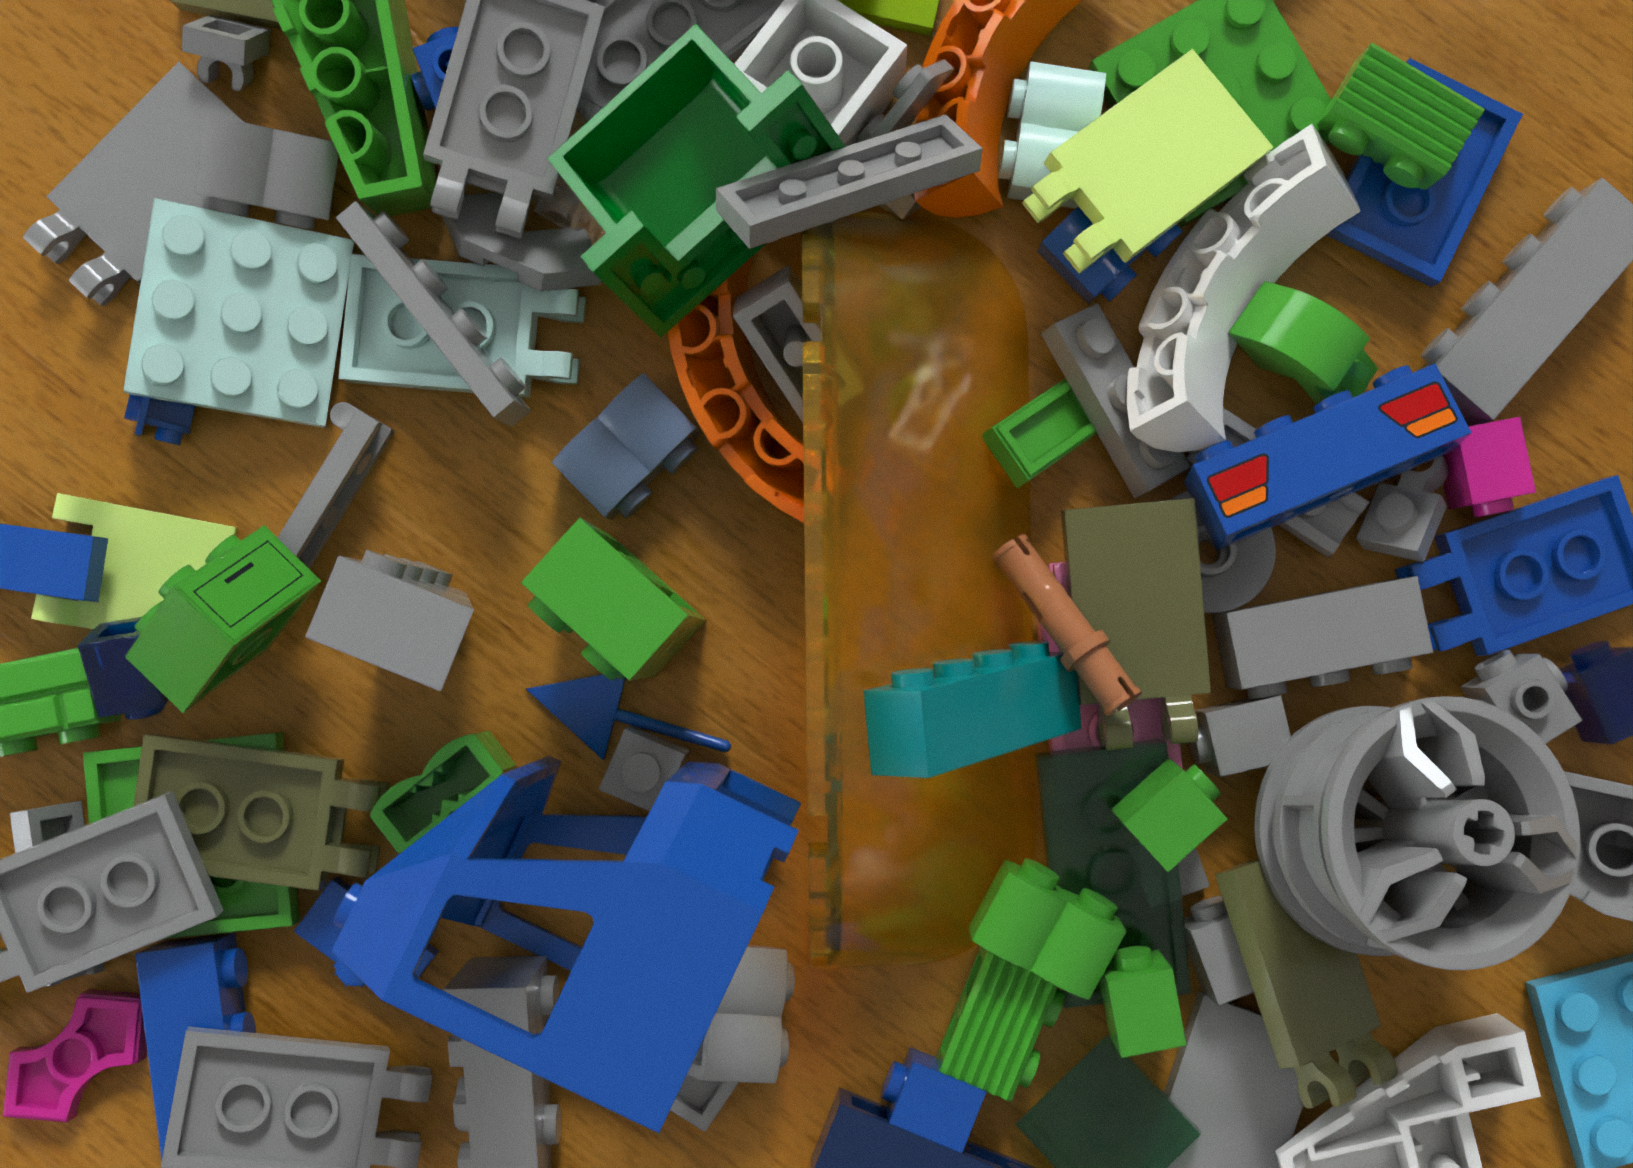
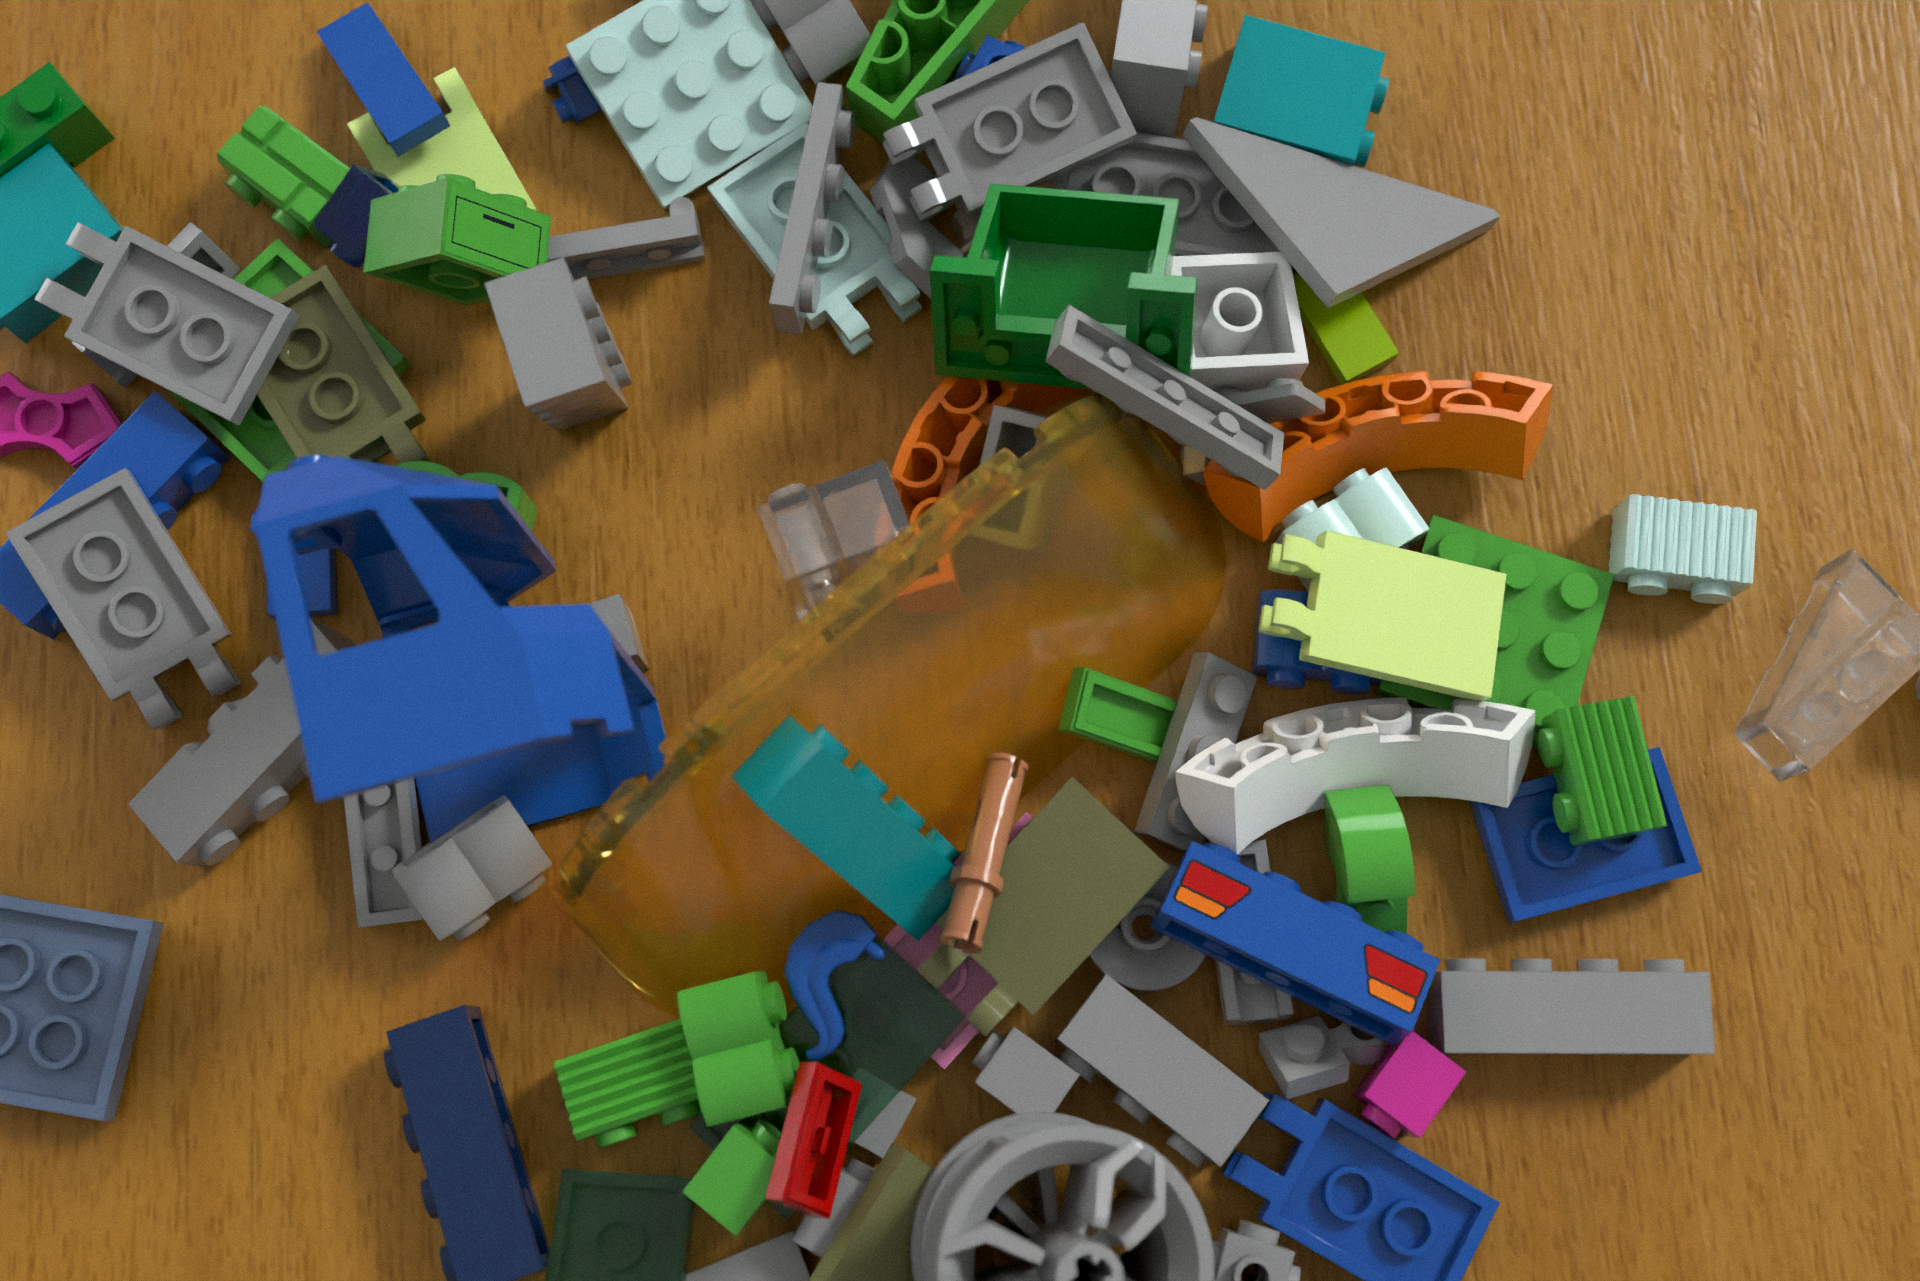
camera: 50 degrees right, 10 degrees down
(591, 708) = (619, 567): blue piece -> none
(612, 603) = (702, 495): bright green brick -> none
(627, 449) = (833, 425): sand blue brick -> none
(733, 526) = (830, 530): none -> clear wedge
(930, 1101) = (525, 1080): blue brick -> none
(1028, 815) = (810, 961): none -> blue piece
(1167, 931) = (808, 1135): none -> red tile
(1171, 812) = (910, 1062): bright green brick -> none

